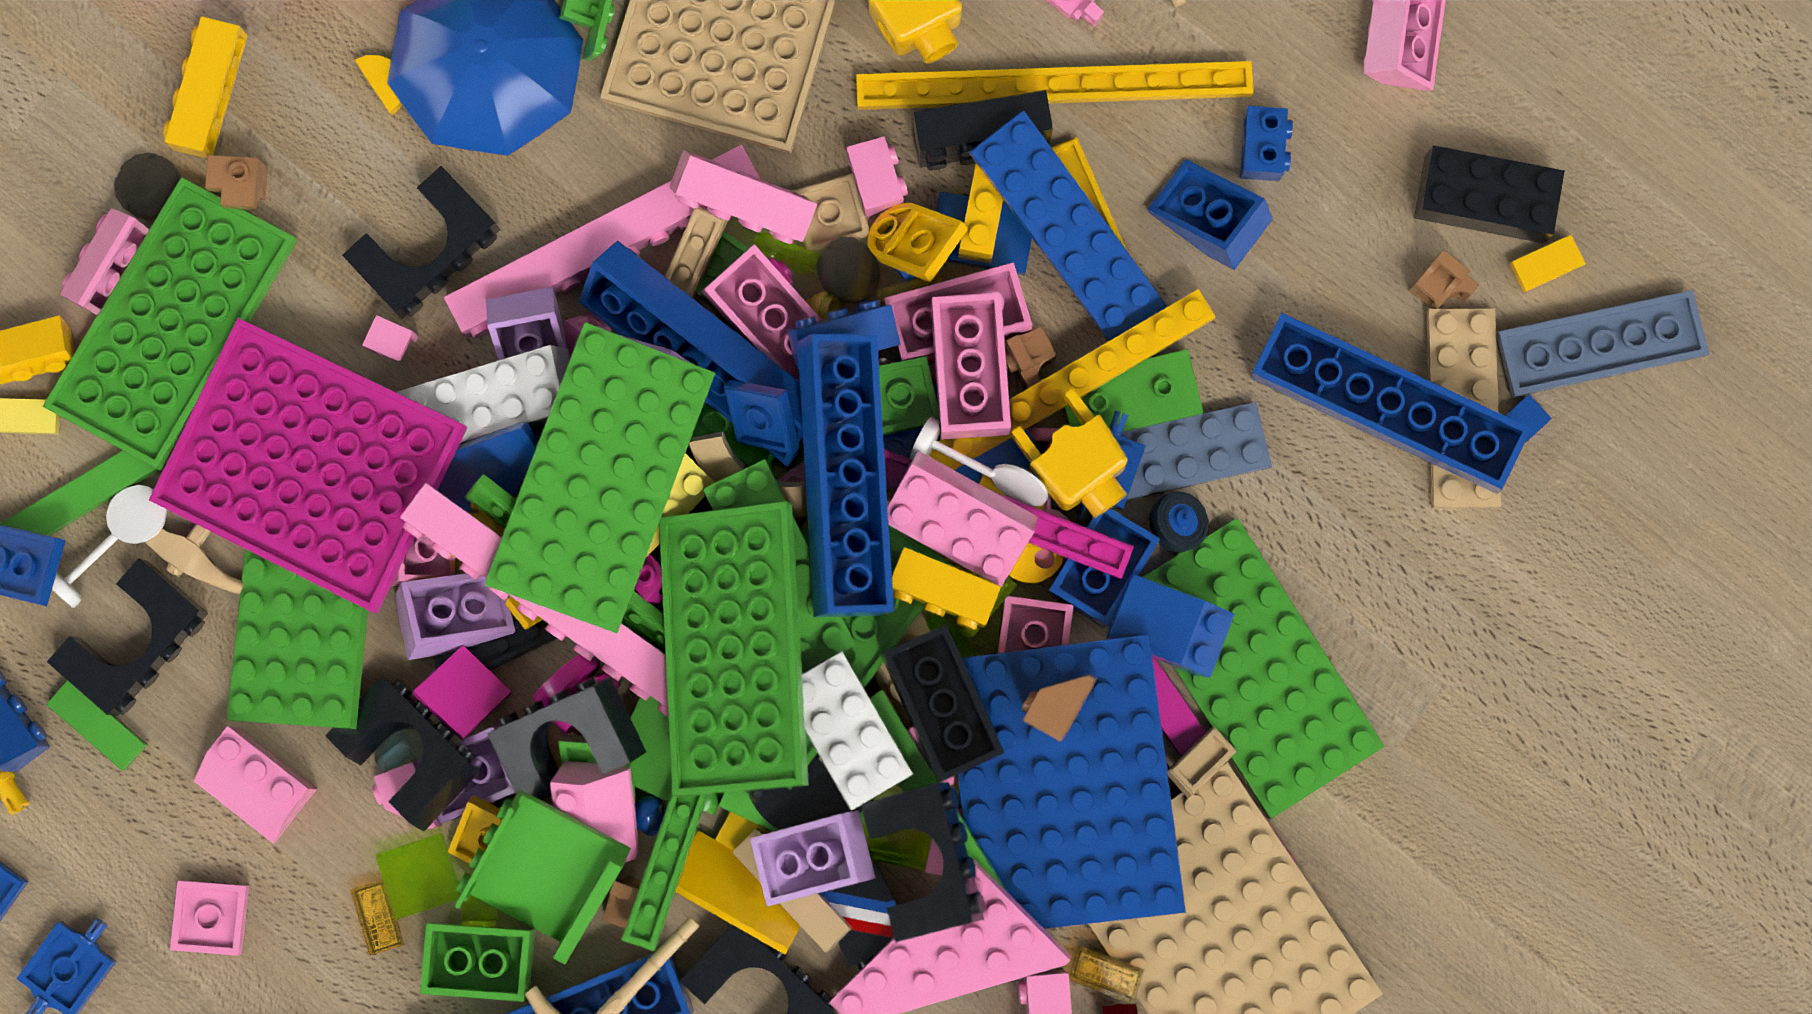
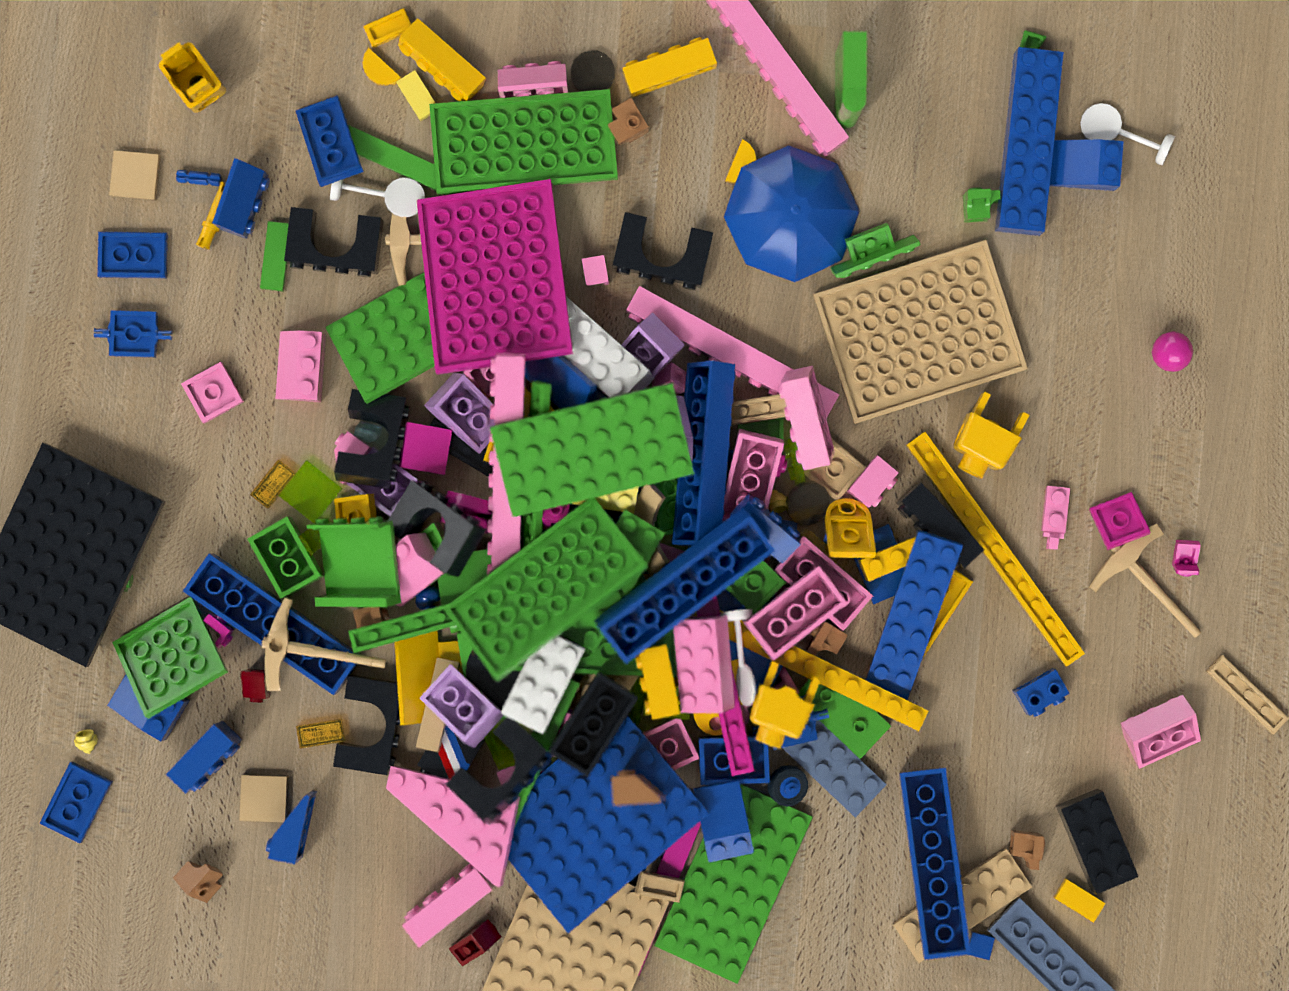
camera: 60 degrees right, 5 degrees up
(761, 416) = (688, 514): blue tile -> none
(1106, 974) = (506, 909): clear yellow tile -> none
(1212, 213) = (979, 688): blue slope -> none

